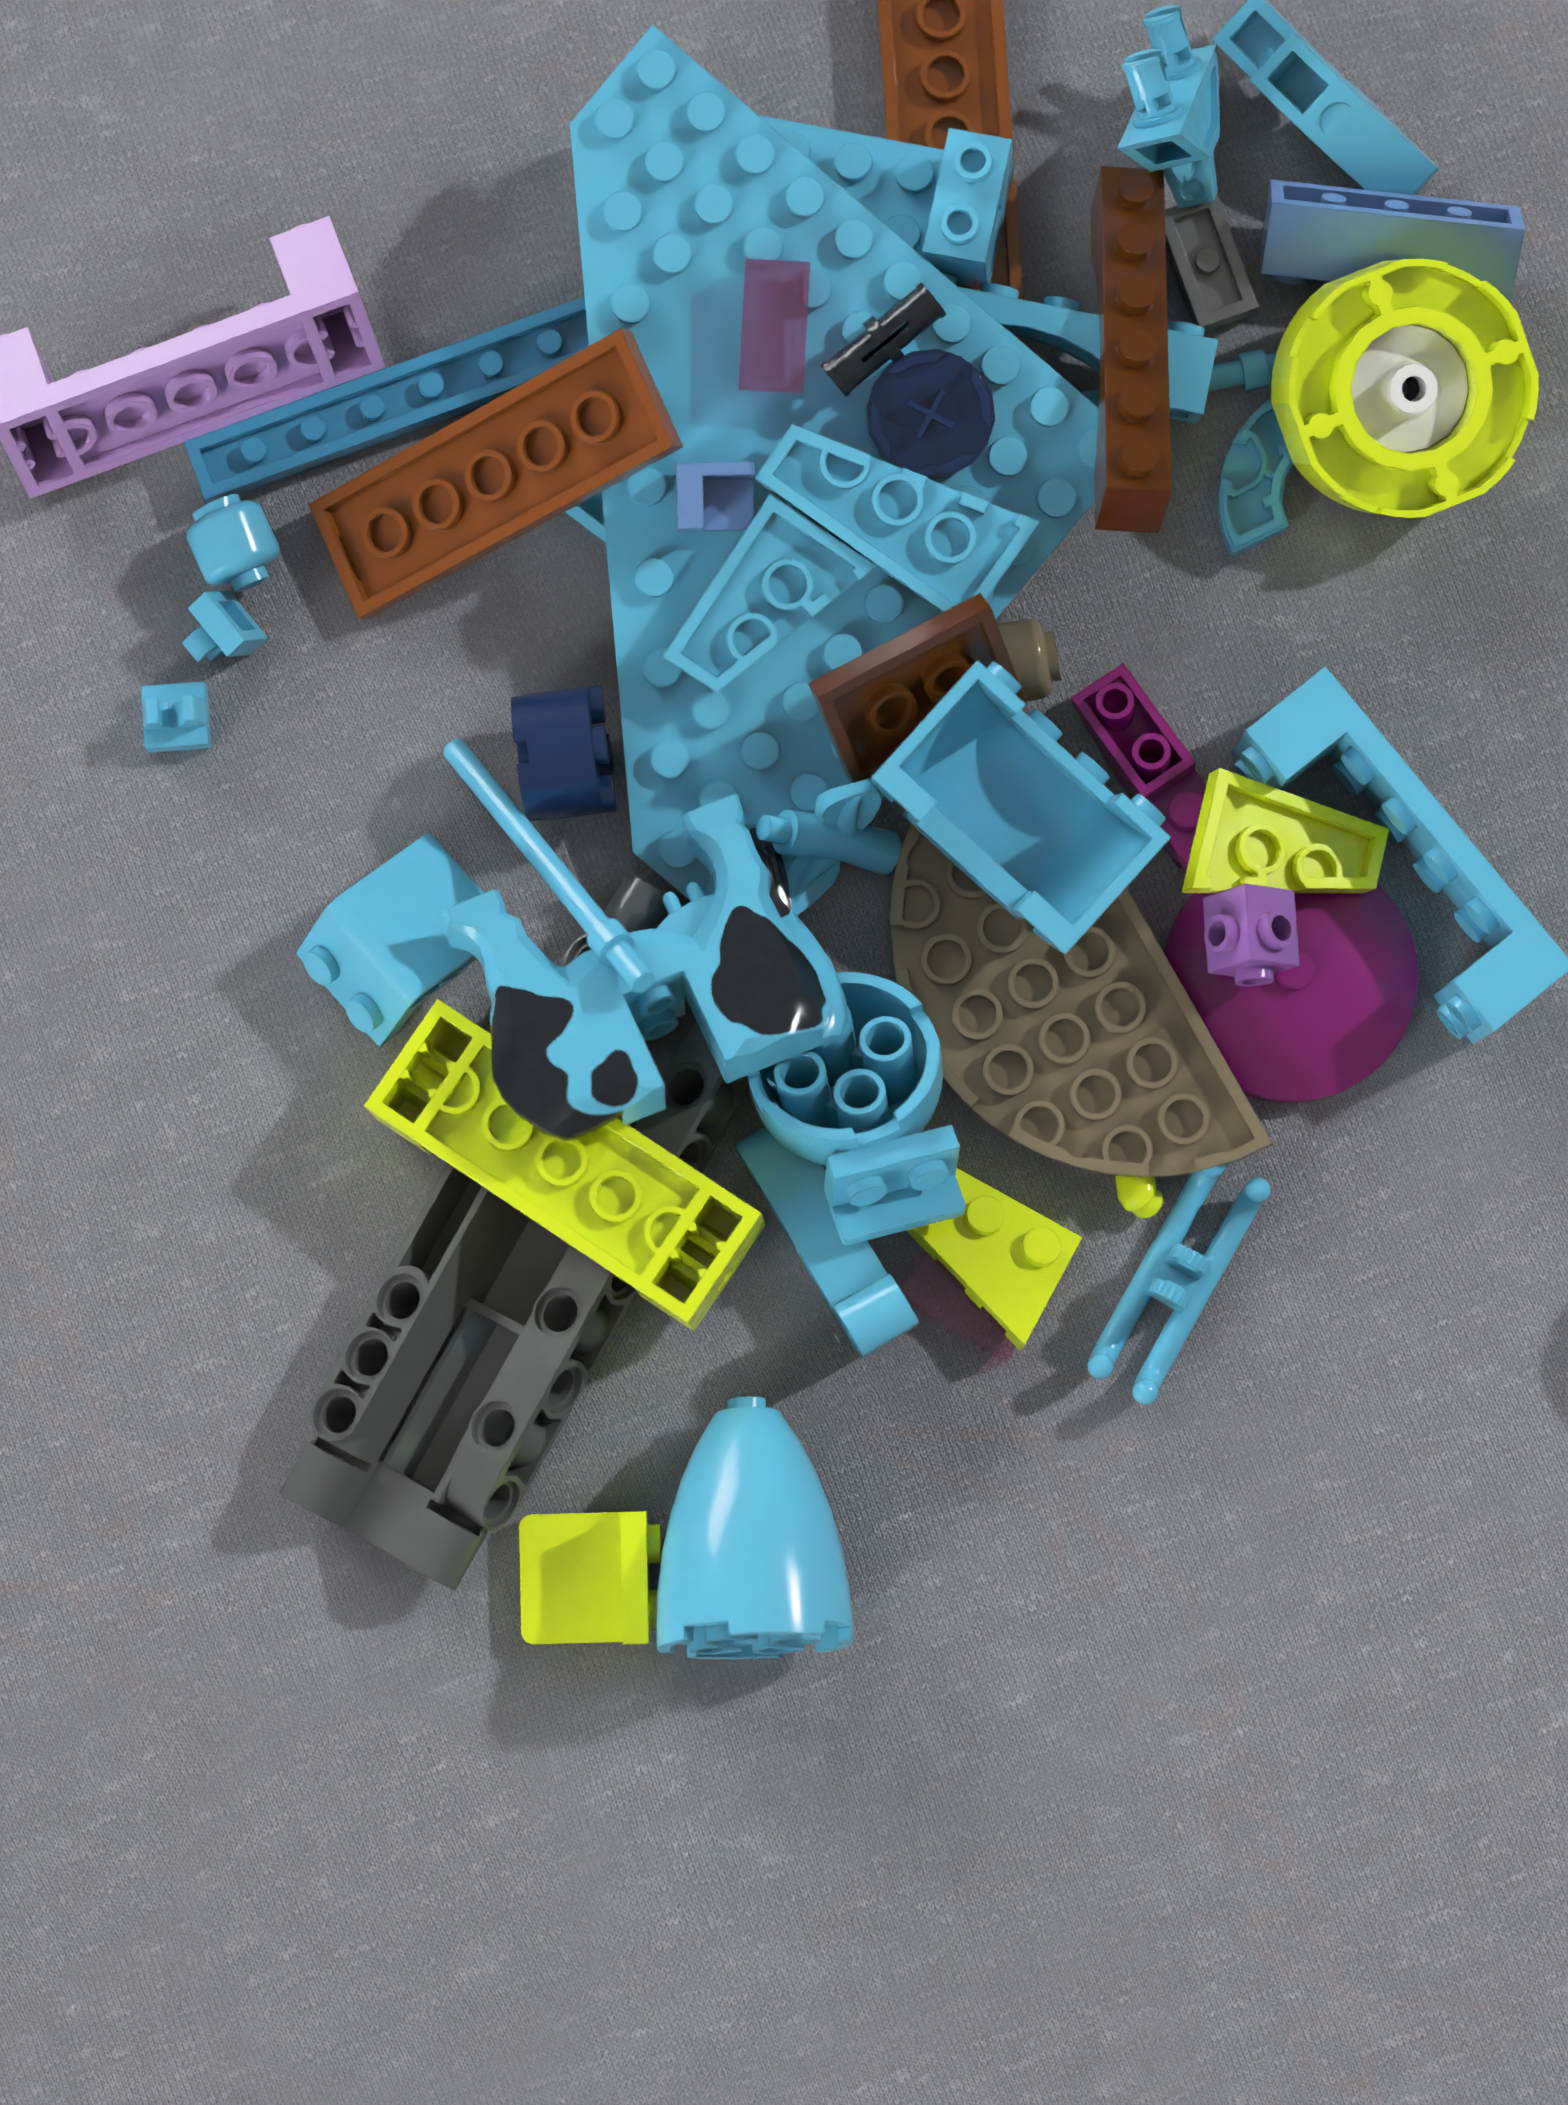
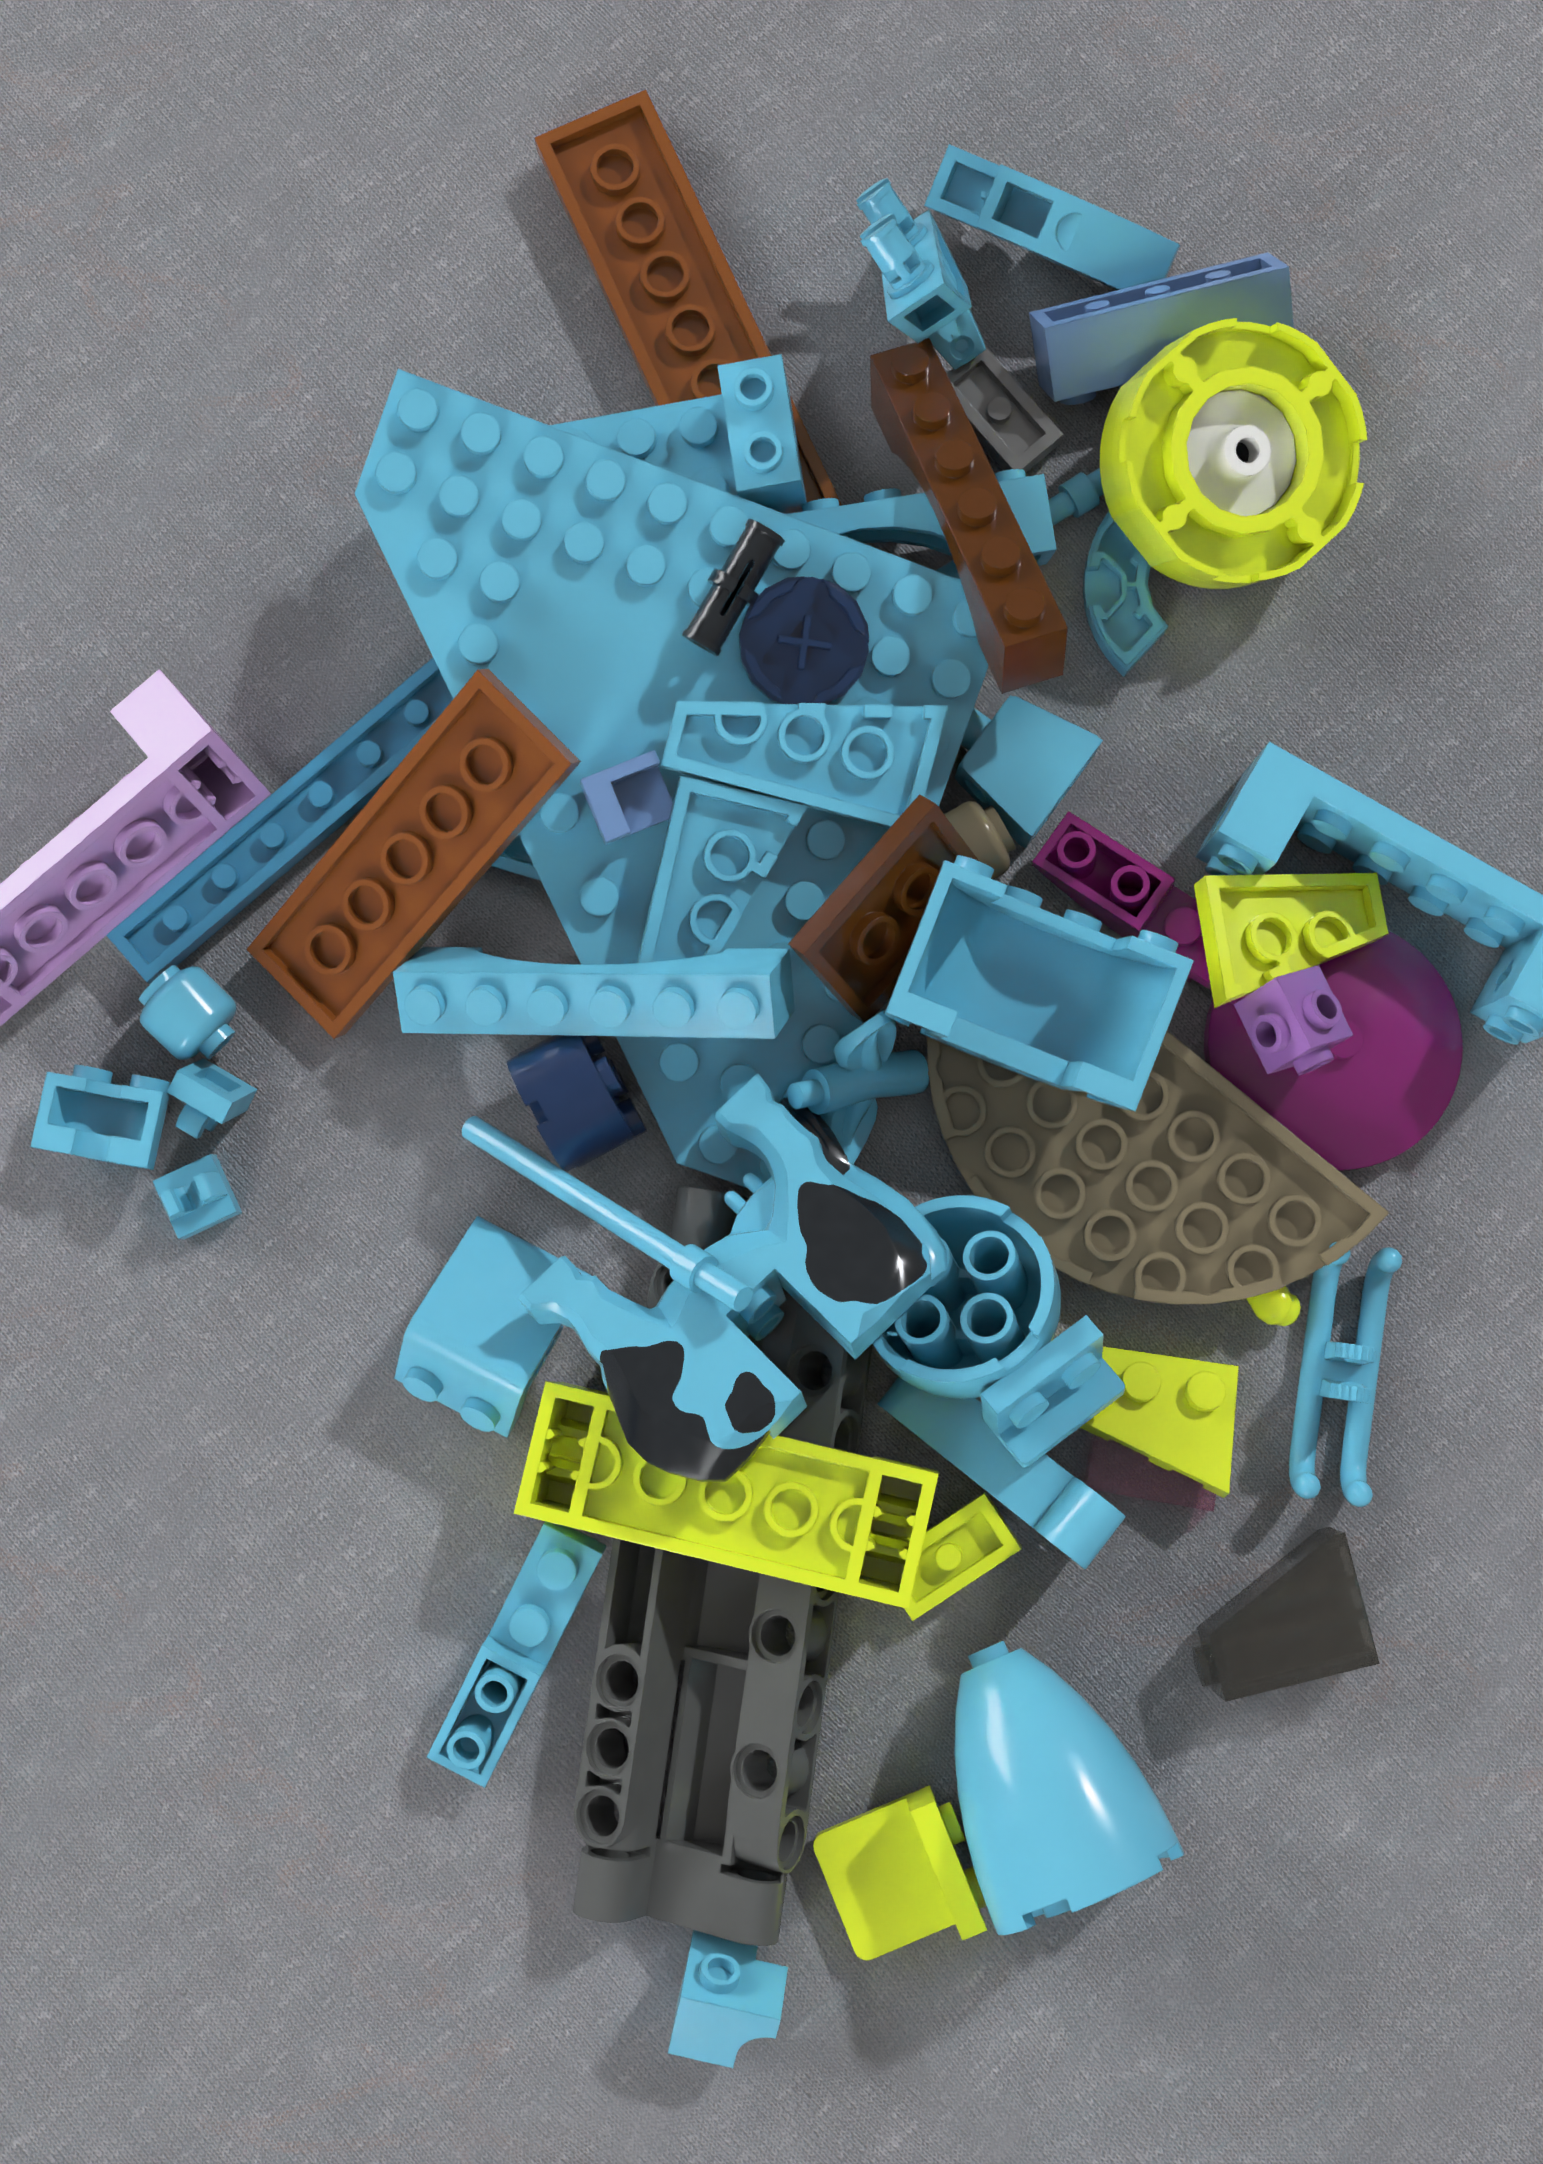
camera: 15 degrees left, 0 degrees up
(116, 611) = (101, 1119): none -> medium azure cylinder
(316, 1241) = (516, 1652): none -> medium azure slope
(387, 1621) = (725, 2000): none -> medium azure brick
(704, 700) = (696, 997): none -> medium azure arch
(755, 1308) = (960, 1552): none -> neon yellow plate
(774, 326) = (624, 613): tile -> none
(1035, 1489) = (1289, 1624): none -> clear smoke slope
(1099, 603) = (1023, 763): none -> medium azure torso

